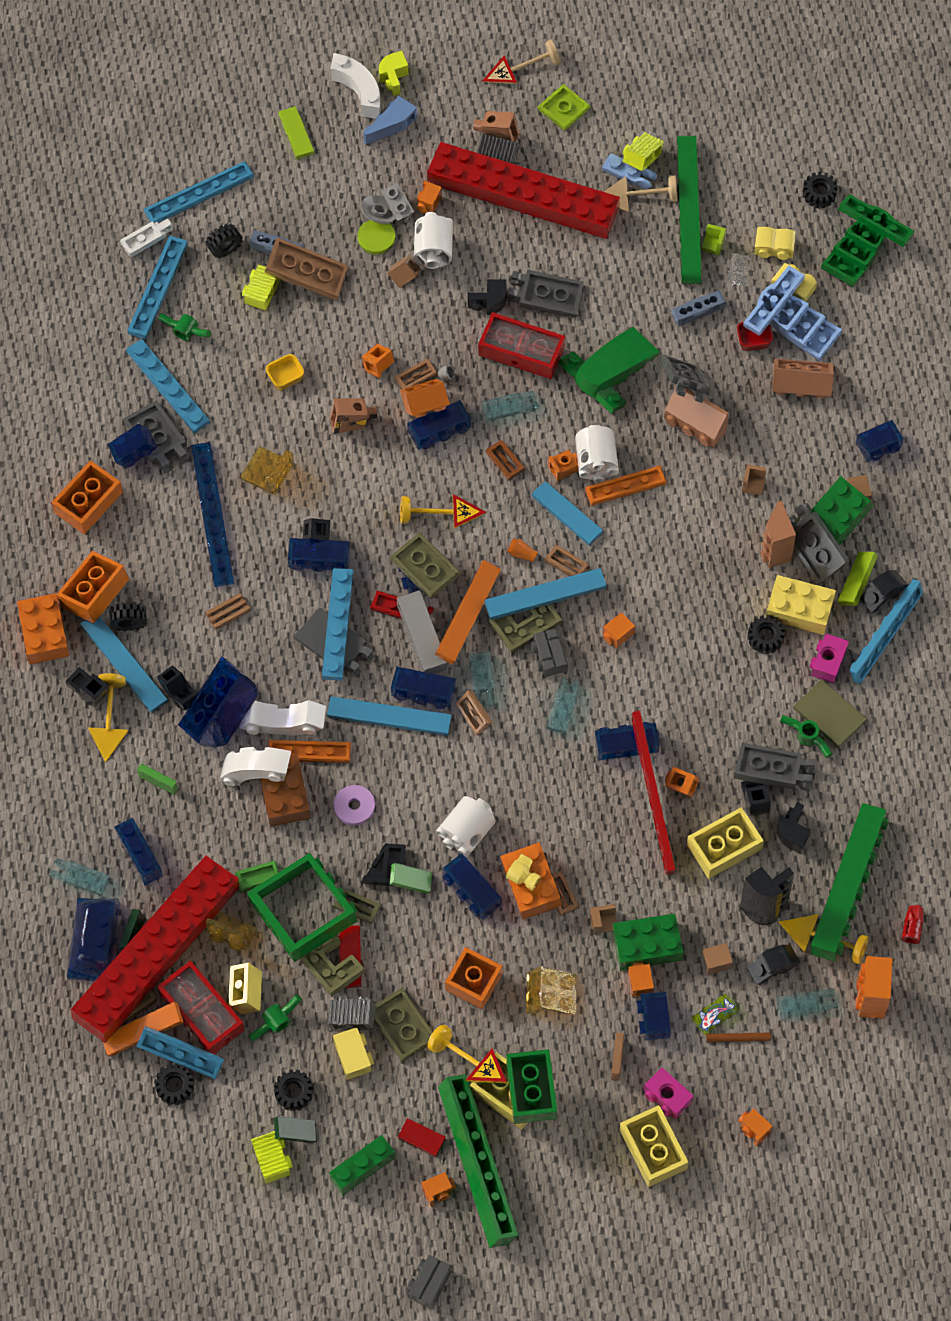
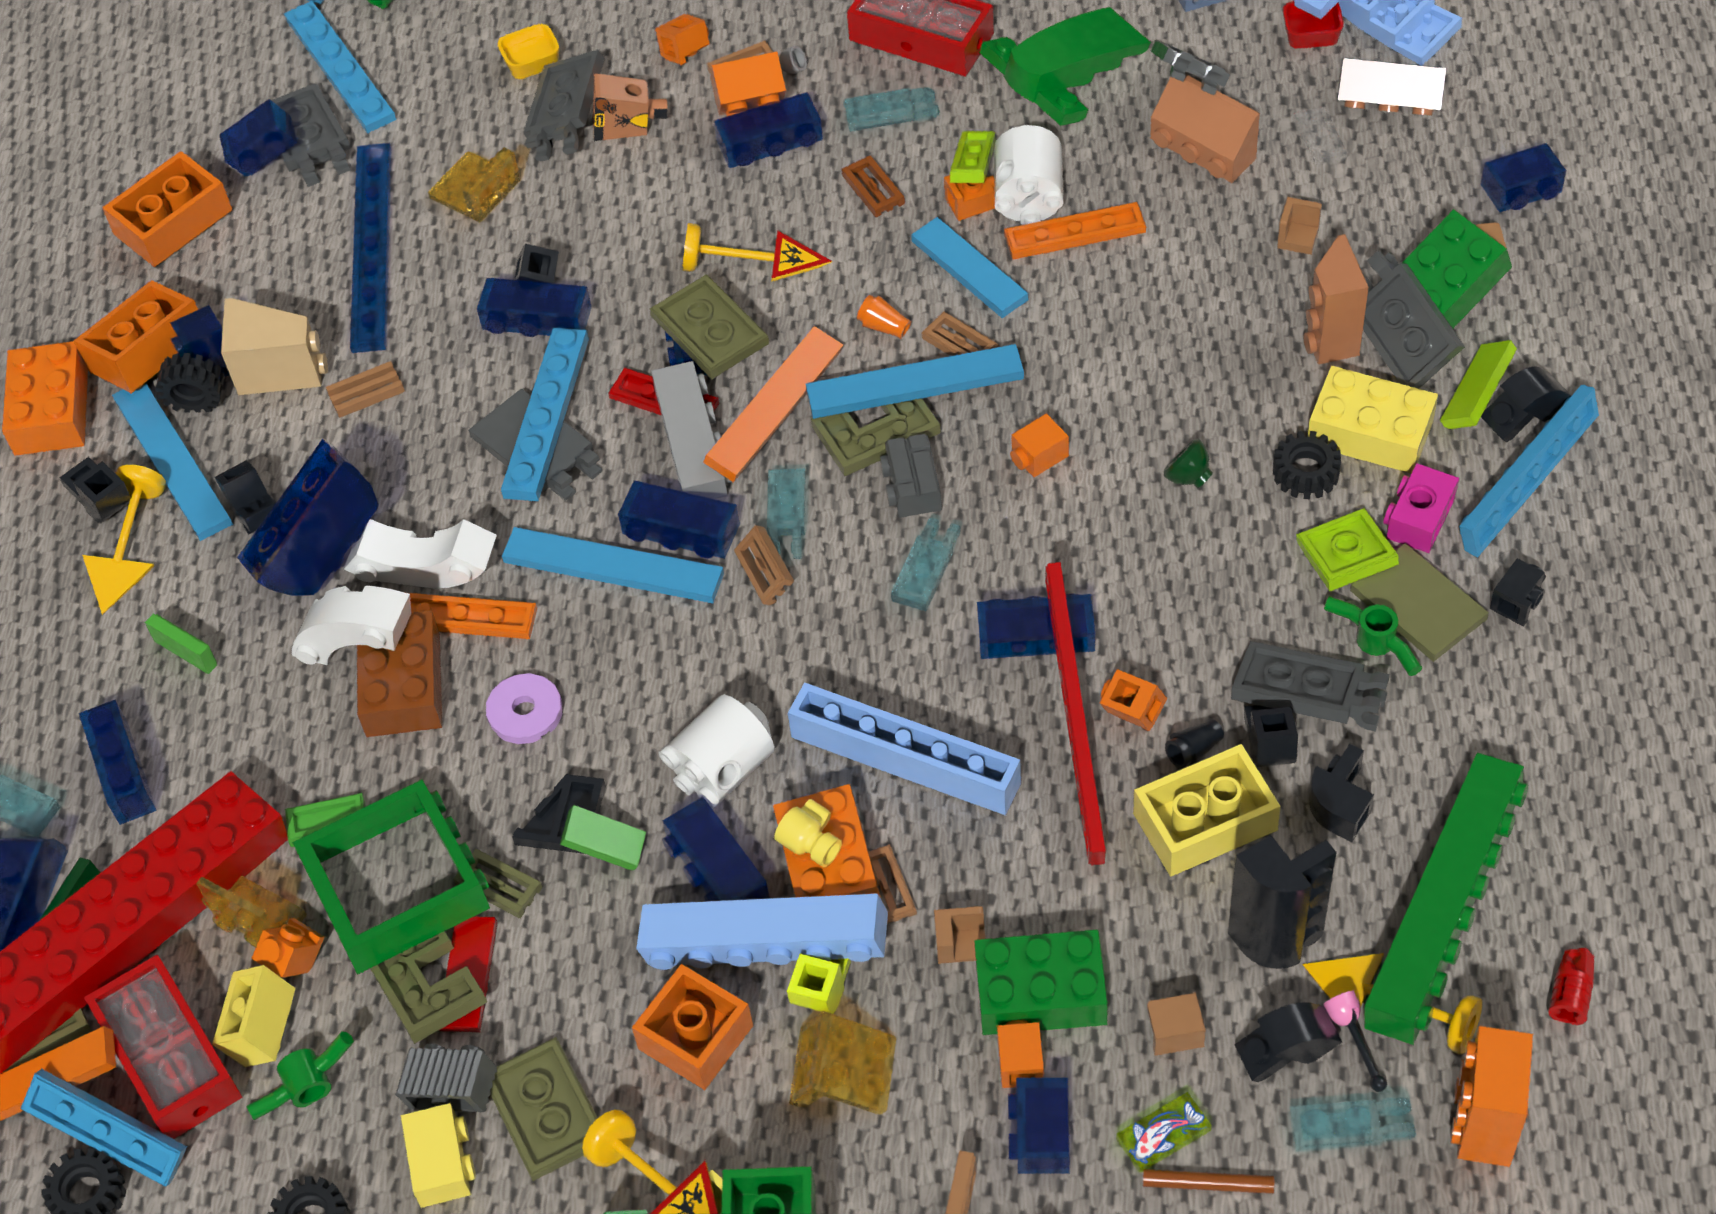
camera: 10 degrees right, 10 degrees down
(132, 589) = (200, 335): none -> clear blue brick
(172, 591) = (270, 349): none -> tan slope
(255, 950) = (288, 948): none -> orange brick
(312, 410) = (562, 103): none -> dark grey tile
(503, 925) = (762, 931): none -> light blue brick
(536, 944) = (818, 983): none -> neon yellow brick
(562, 441) = (972, 157): none -> lime tile
(564, 818) = (905, 748): none -> light blue brick
(702, 638) = (1190, 465): none -> dark green brick
(715, 804) = (1193, 743): none -> black cone
(790, 685) = (1347, 549): none -> lime tile
(801, 946) = (1345, 1011): none -> hinge
(882, 706) = (1518, 592): none -> black brick

